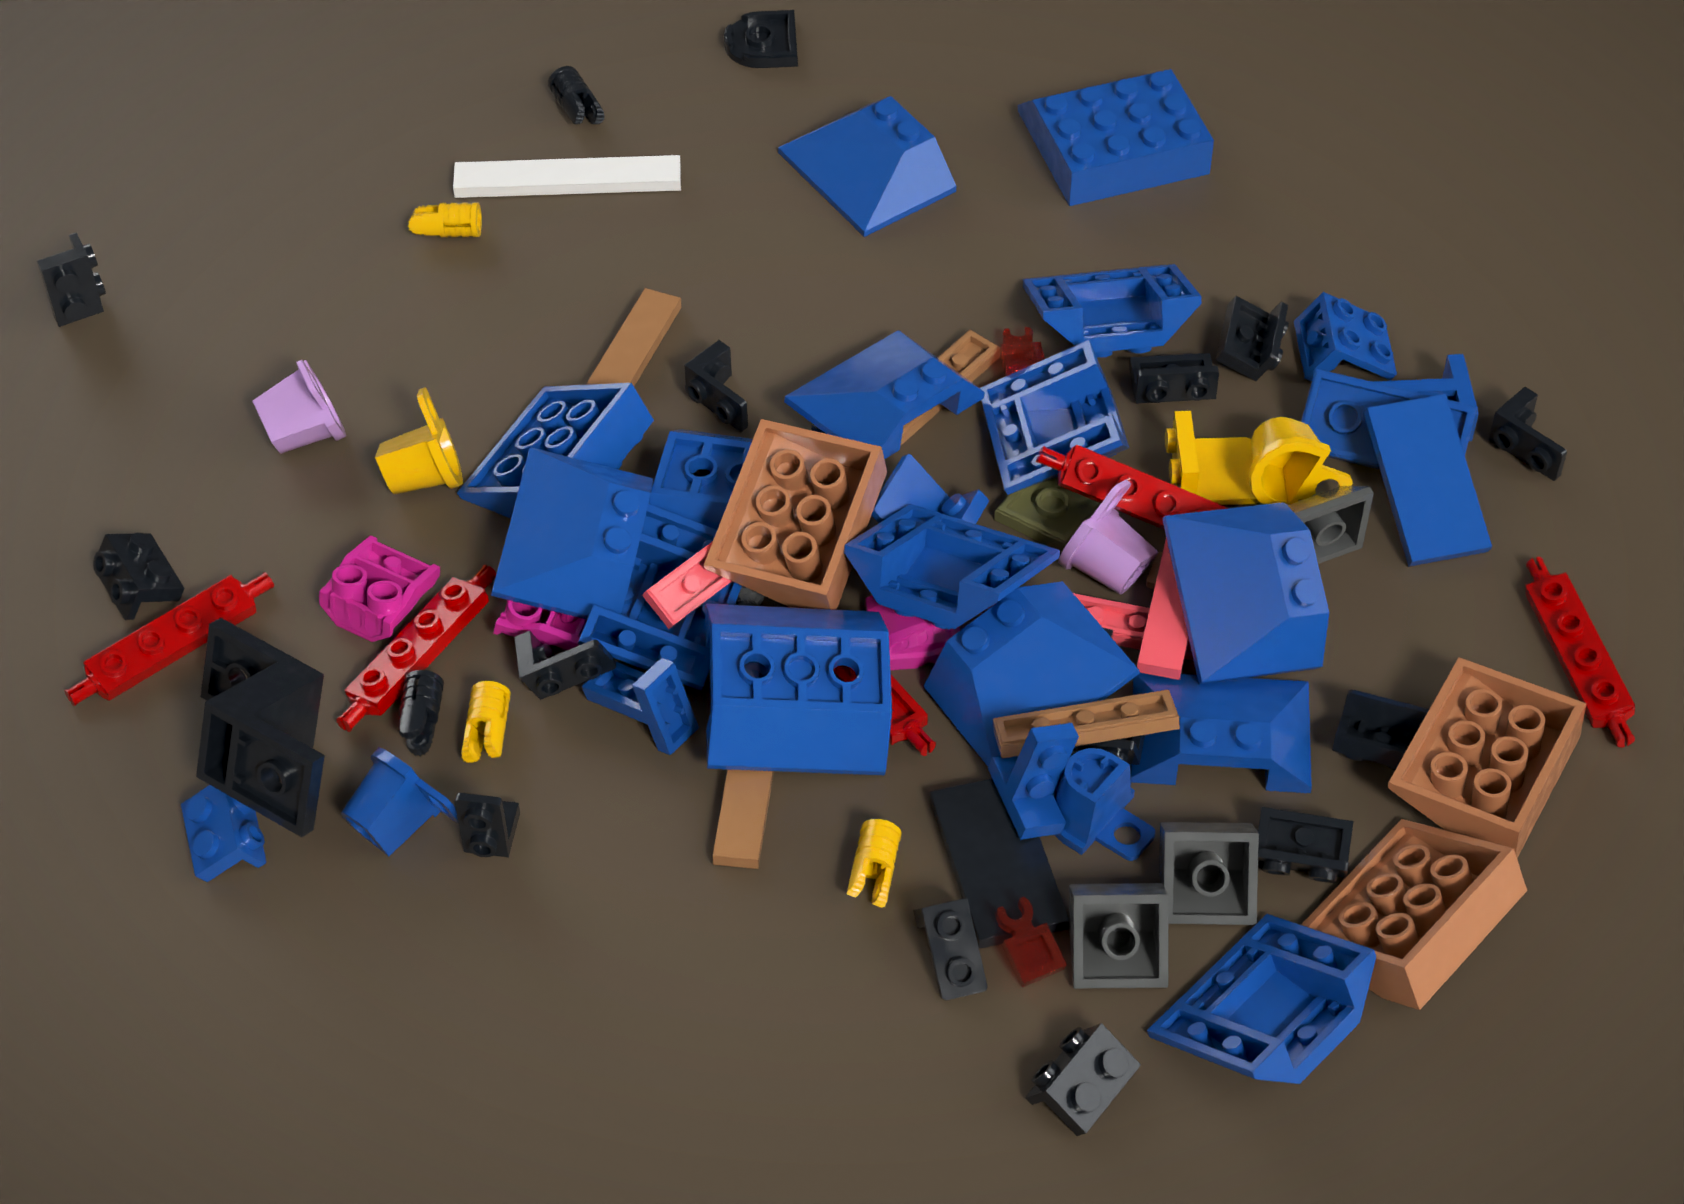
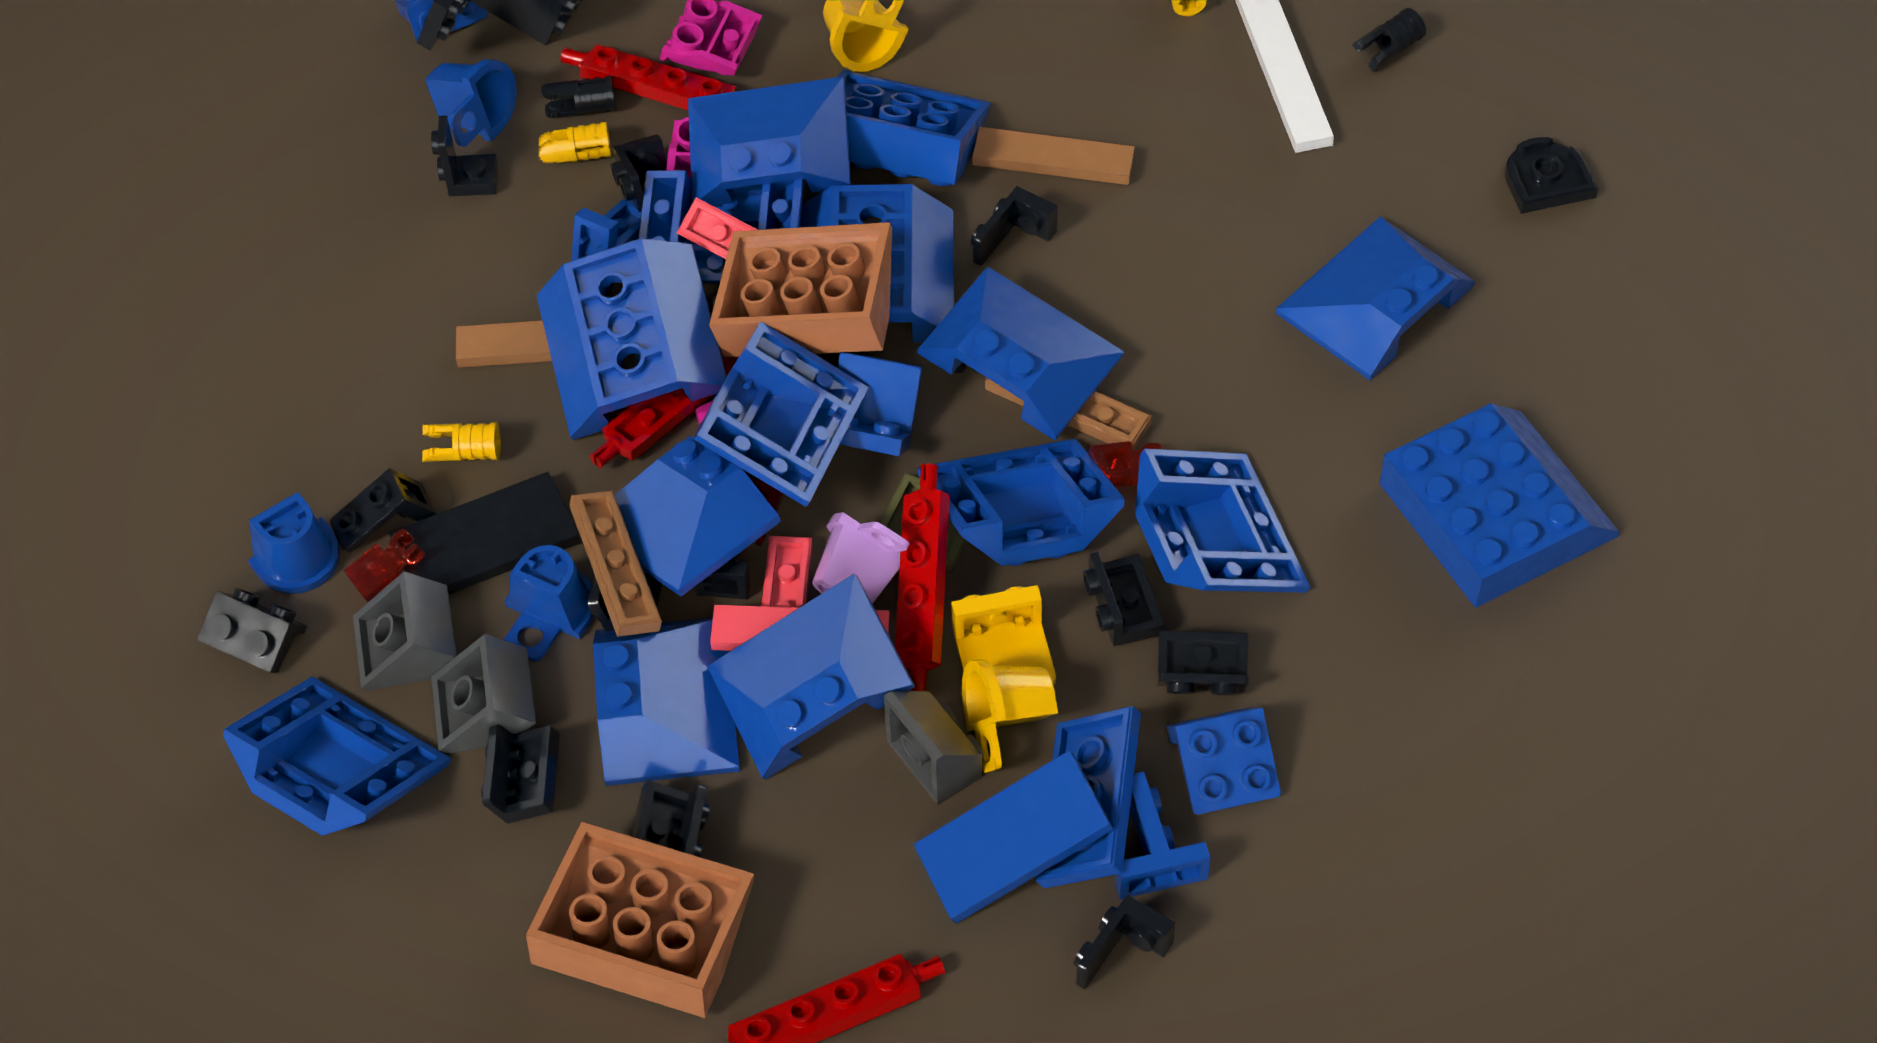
camera: 80 degrees right, 5 degrees up
(982, 1031) = (292, 547): none -> blue container
(1030, 780) = (544, 527): blue bracket -> none
(1421, 906) = (453, 873): nougat slope -> none

